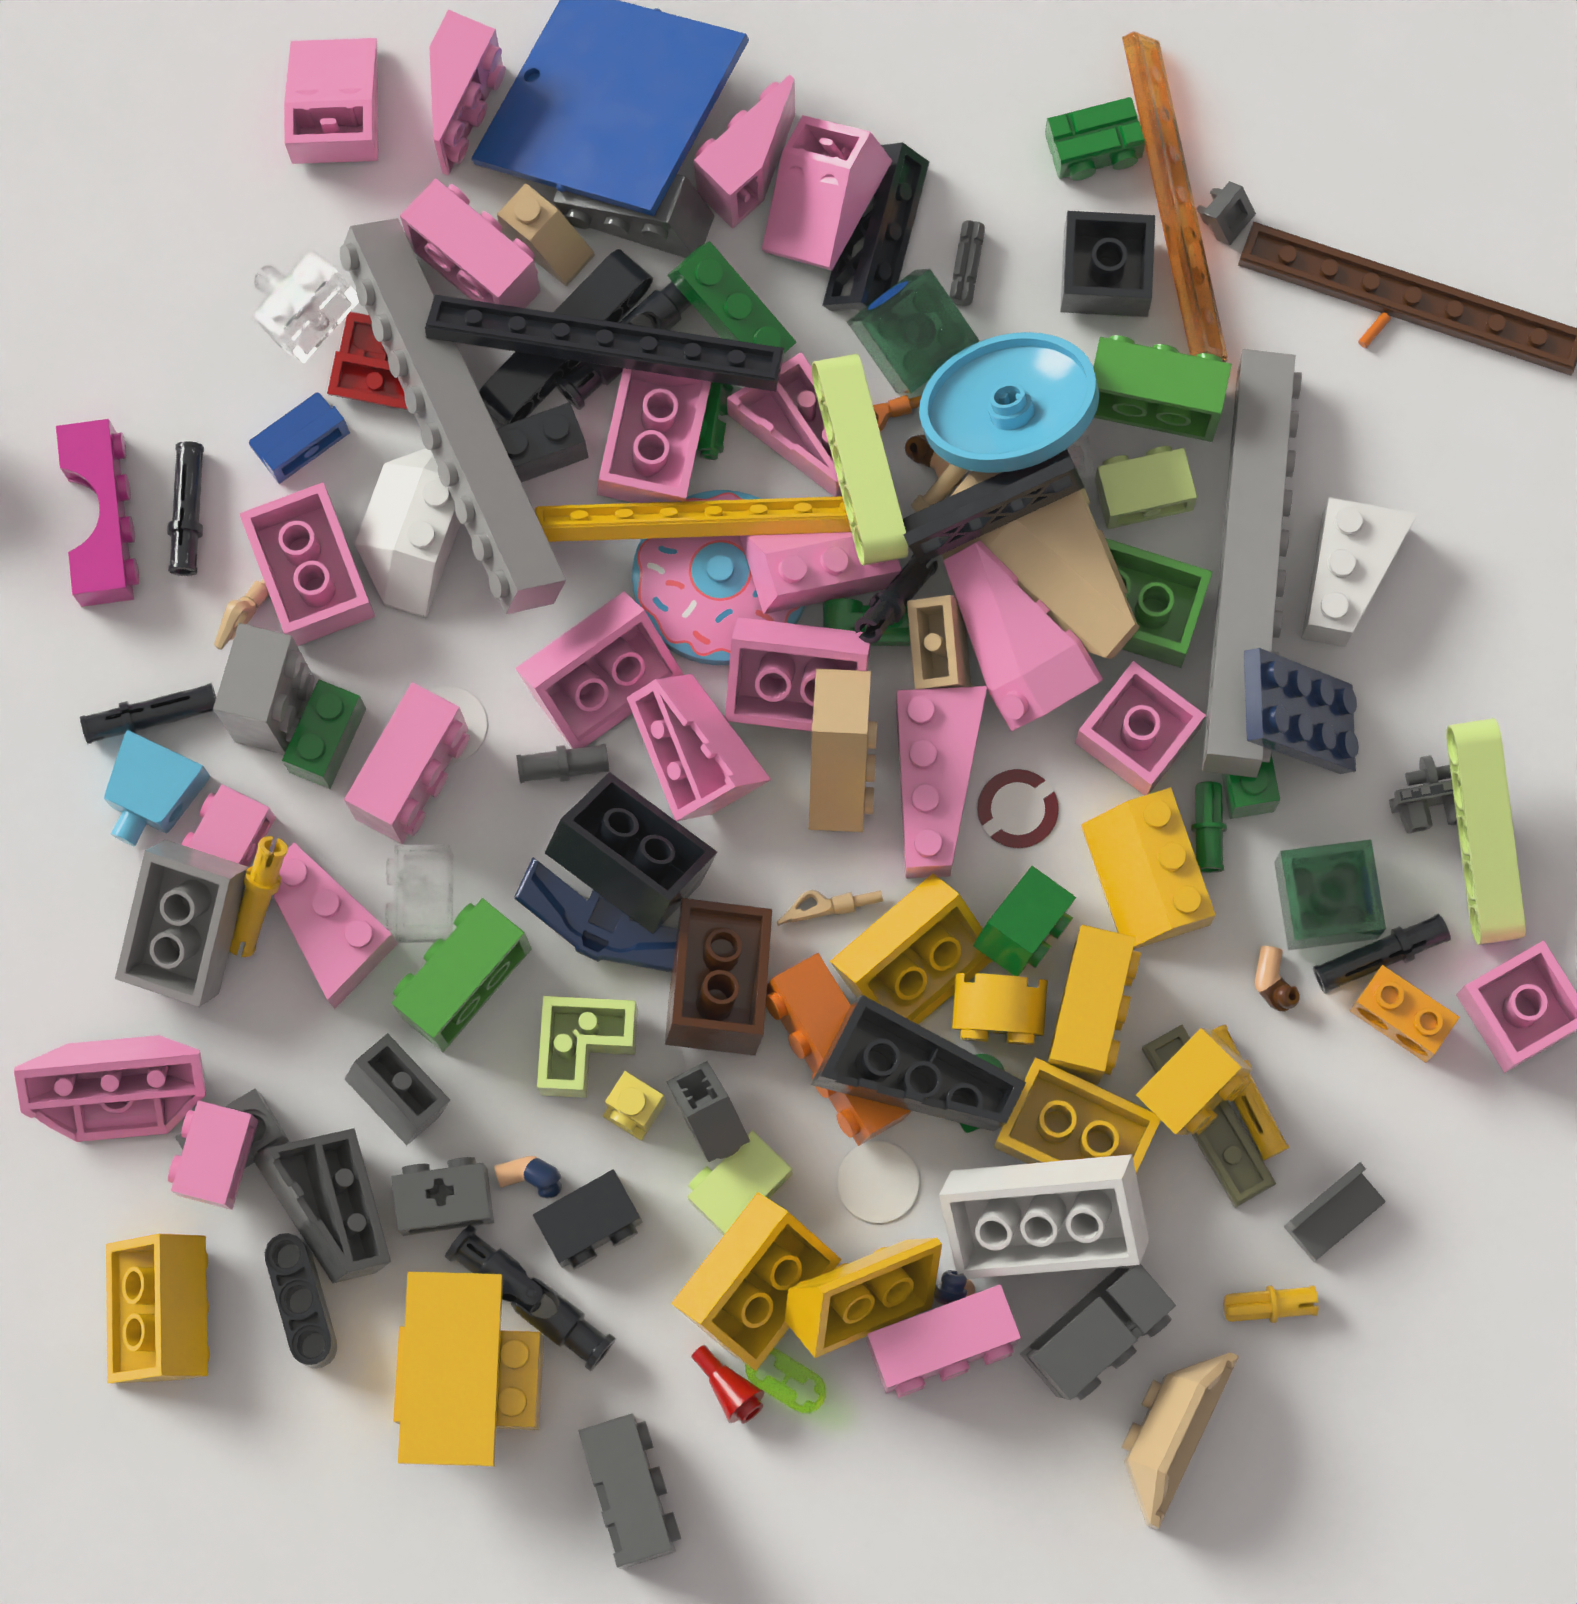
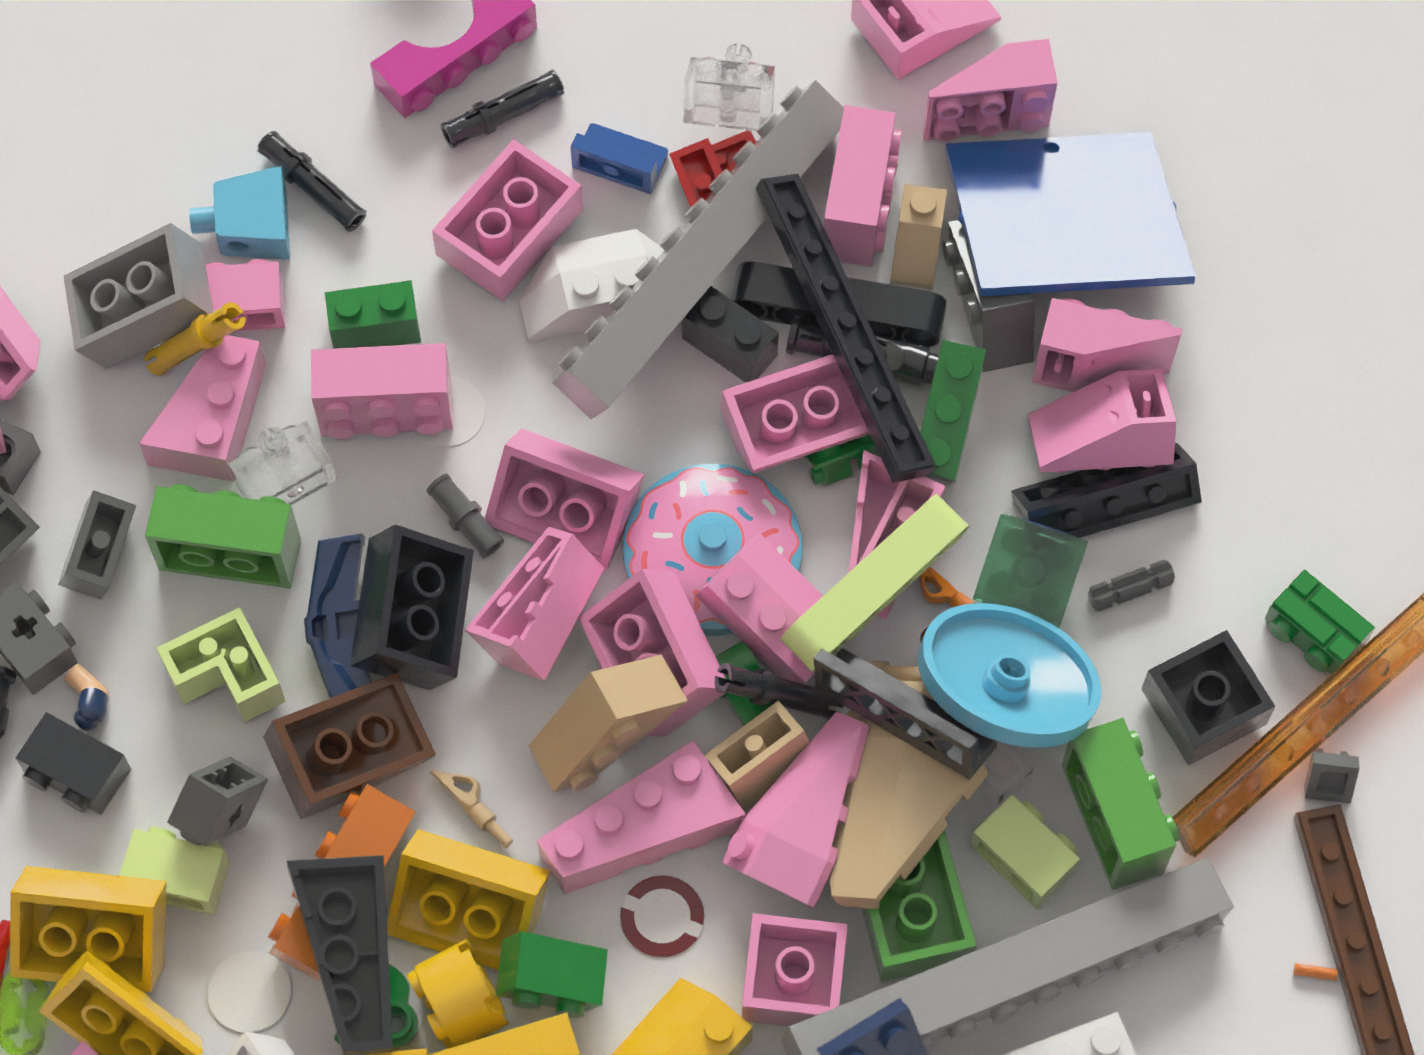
camera: 55 degrees right, 10 degrees down
(240, 612) = (431, 196): tan hand -> none
(263, 688) = (373, 235): light grey brick -> none
(633, 1105) = (194, 741): light yellow brick -> none
(693, 519) = (739, 487): yellow tile -> none

